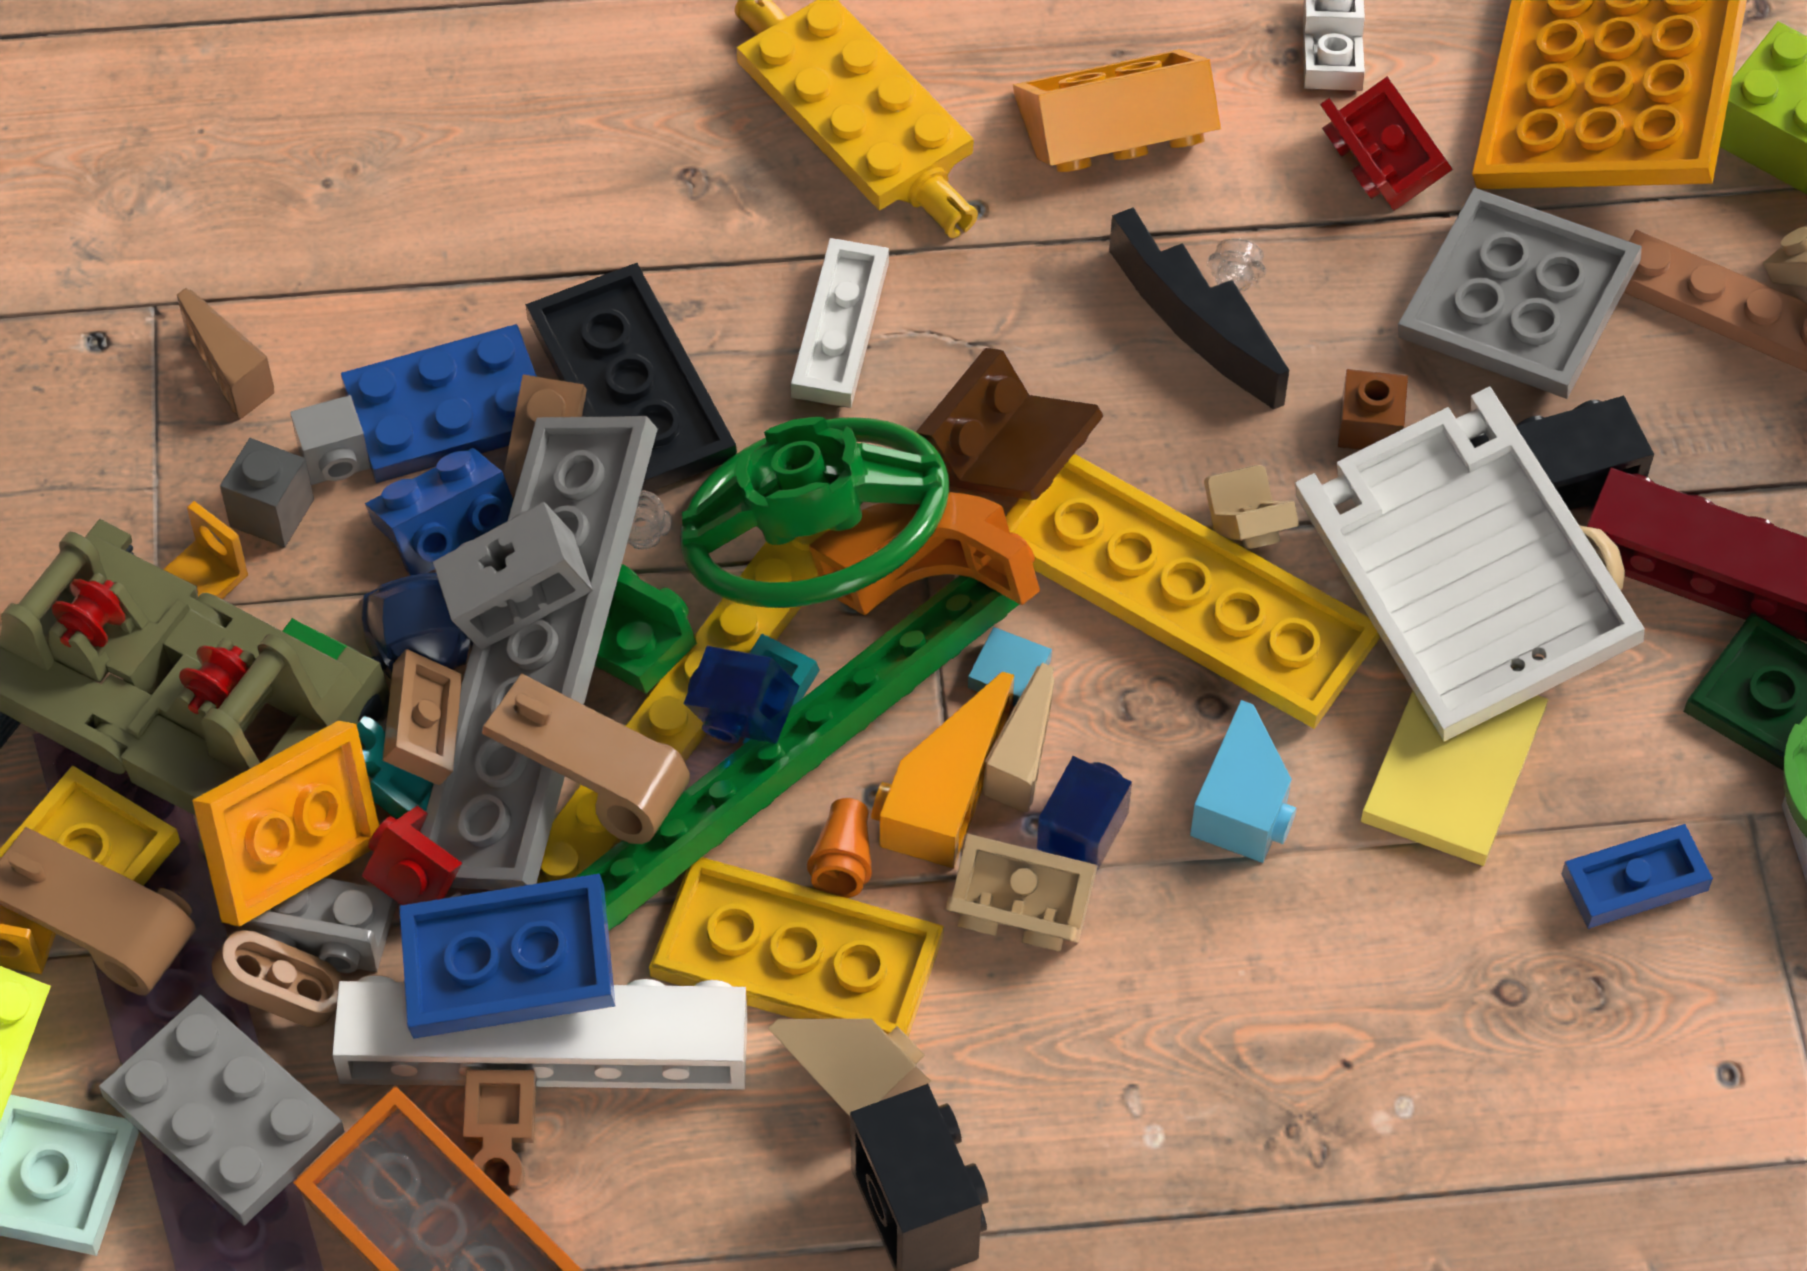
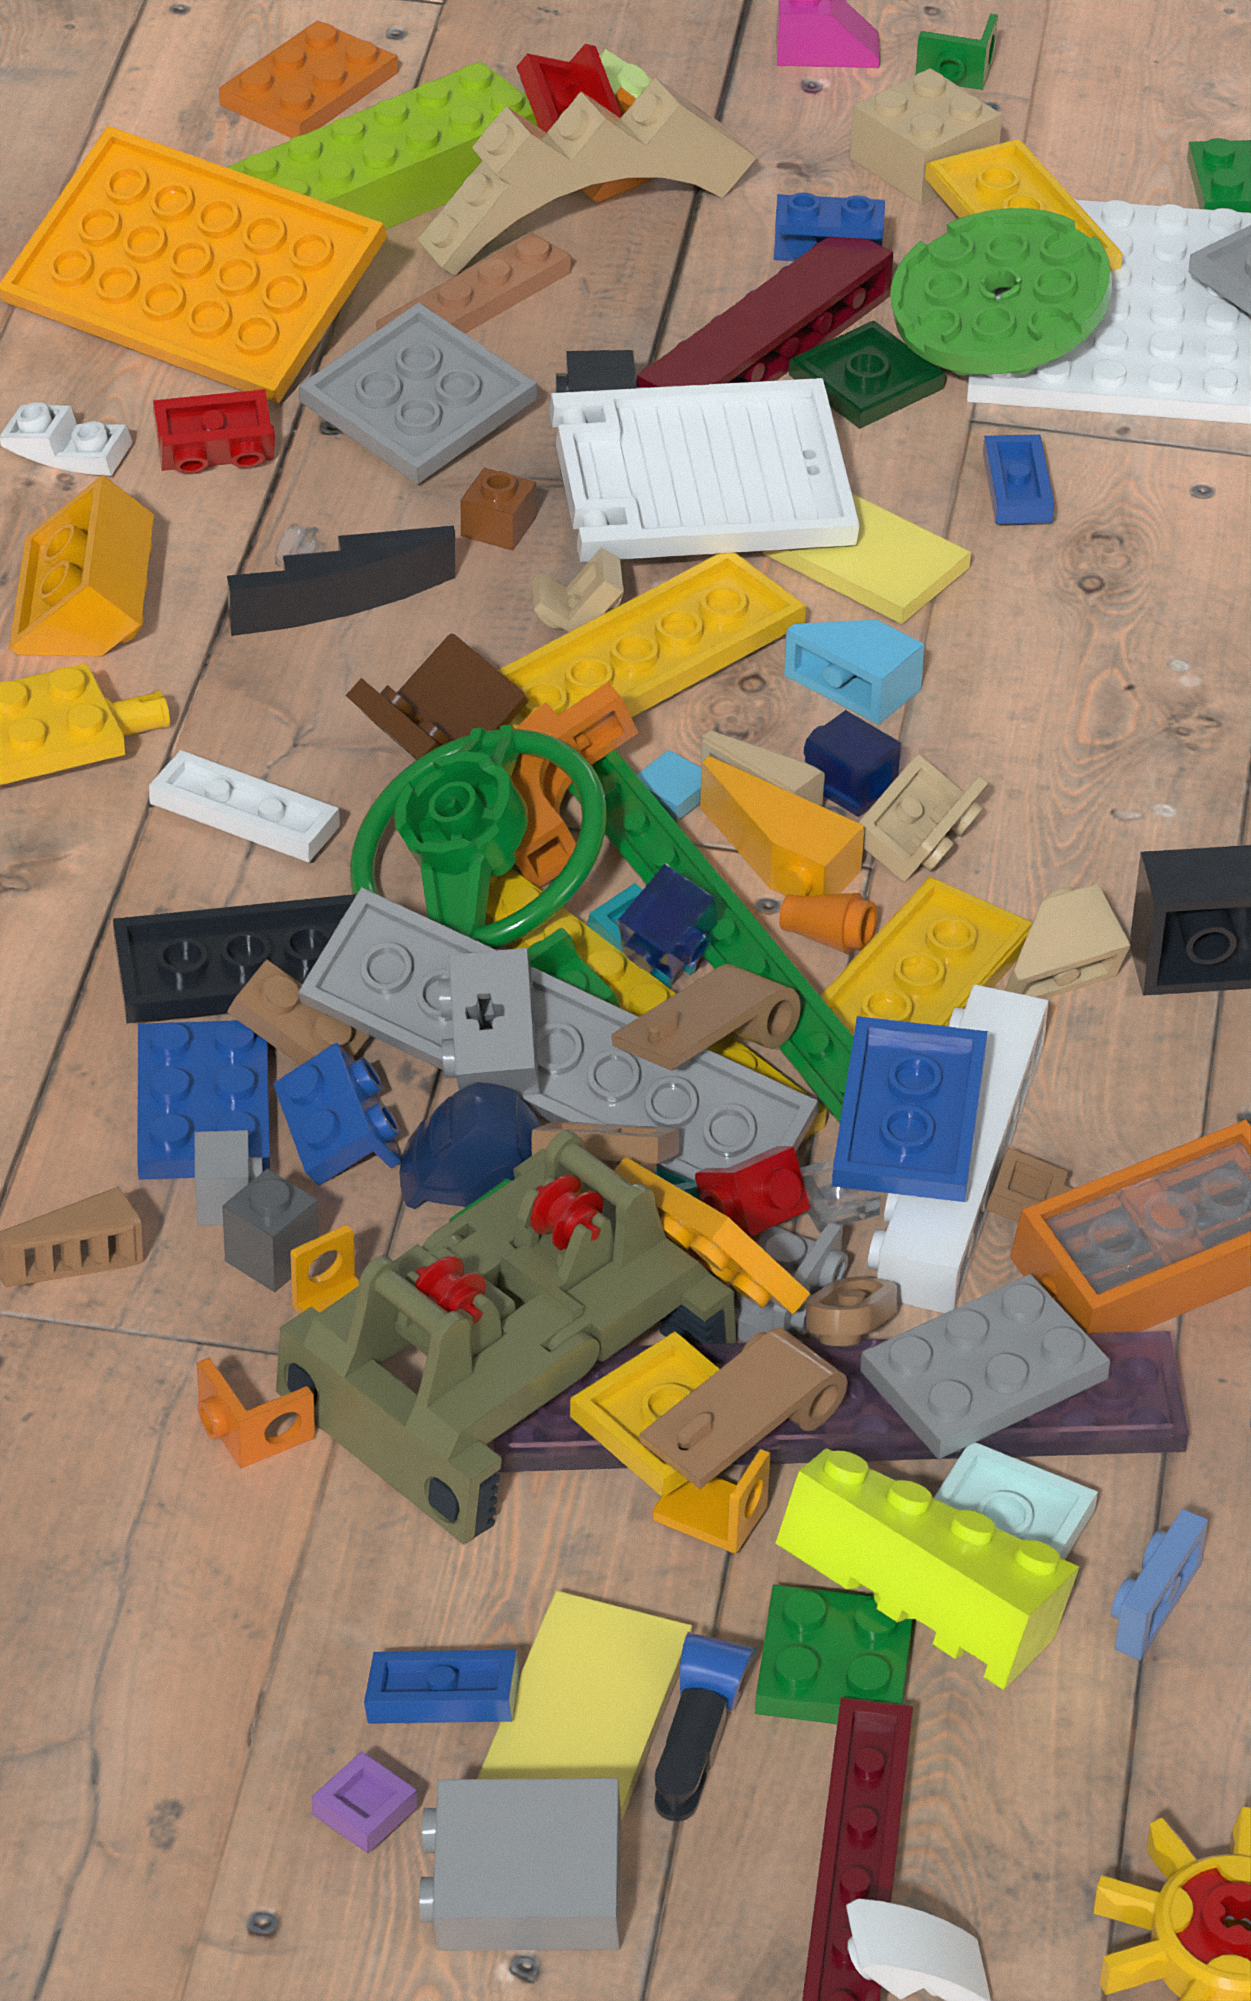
camera: 75 degrees left, 15 degrees down
(41, 522) = (245, 1430): none -> orange bracket

